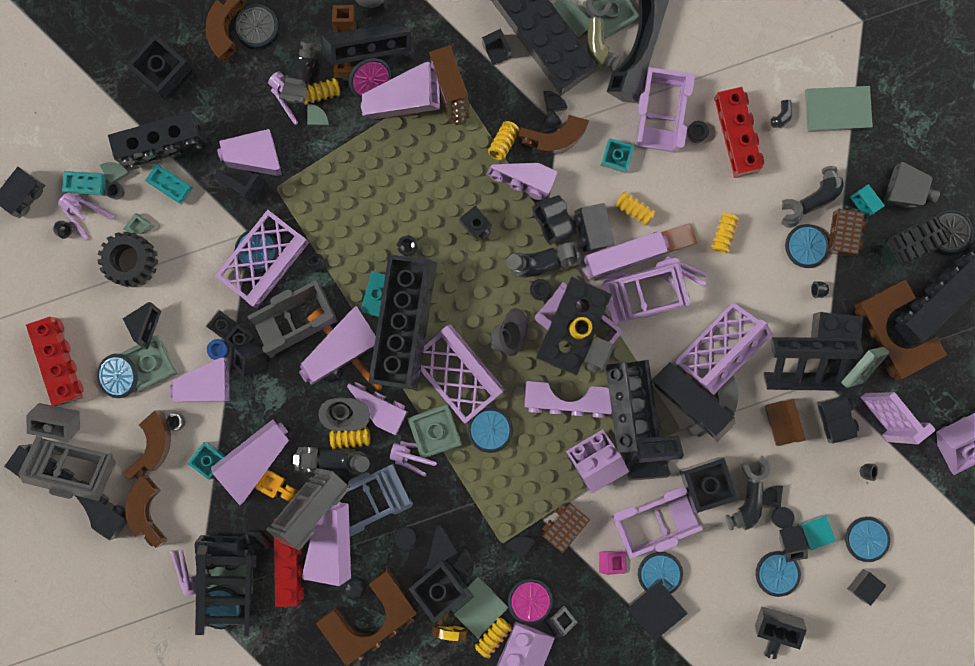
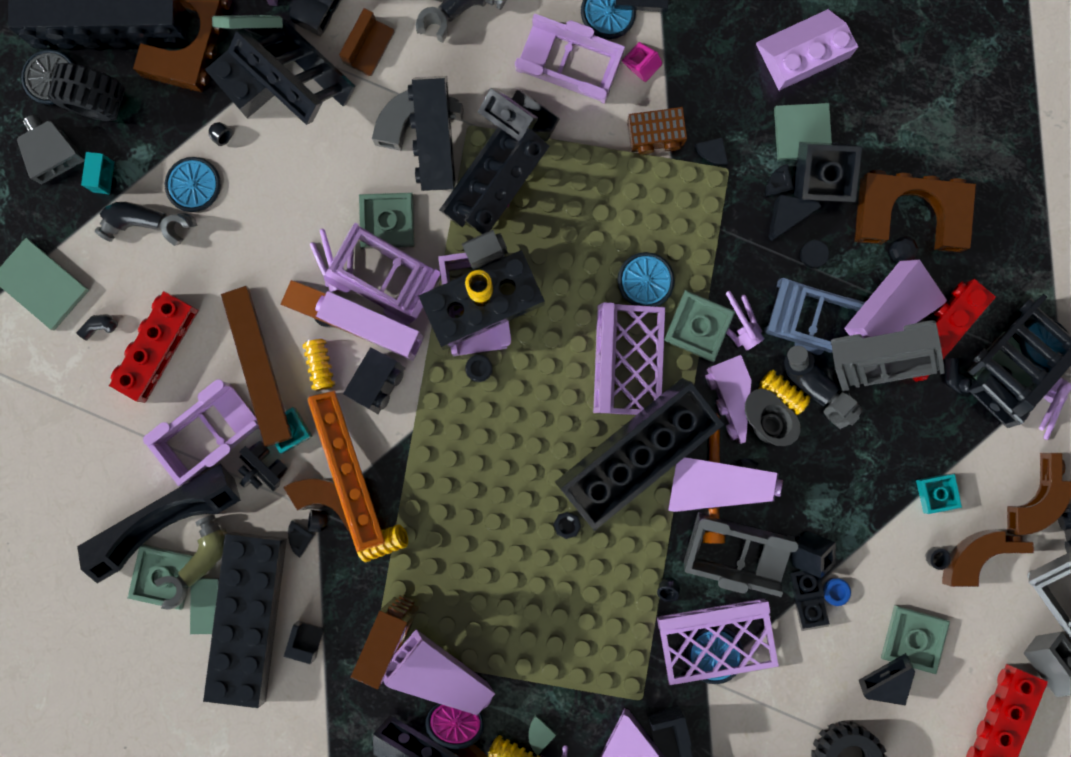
camera: 135 degrees left, 0 degrees up
(117, 375) = (956, 654): dark azure wheel -> none
(203, 384) = (881, 569): lavender slope -> none
(250, 460) = (901, 455): lavender slope -> none
(272, 484) = (897, 416): light orange plate -> none
(373, 295) = (641, 507): teal plate -> none
(449, 632) = (851, 129): piece -> none
(476, 224) = (482, 485): black brick -> none
(493, 637) = (813, 91): yellow piece -> none
(510, 333) = (547, 352): dark grey piece -> none
(528, 177) = (390, 483): lavender slope -> none
(530, 601) = (750, 93): dark pink wheel -> none
(539, 397) = (525, 218): lavender arch -> none
(541, 262) = (451, 391): piece -> none
(554, 219) = (404, 422): black brick -> none
(560, 622) = (738, 50): black slope -> none
(562, 161) = (346, 471): none -> orange tile
(597, 461) = (573, 161): lavender slope -> none
(622, 121) = (253, 459): none -> black hips
(669, 175) = (256, 366): none -> reddish brown tile
(675, 329) = (388, 217): none -> sand green tile
(697, 131) = (191, 383): black tile -> none
(708, 484) = (490, 48): black brick -> none
(725, 233) = (256, 264): yellow piece -> none
(734, 356) = (352, 138): lavender fence -> none
(846, 232) = (145, 162): reddish brown brick -> none

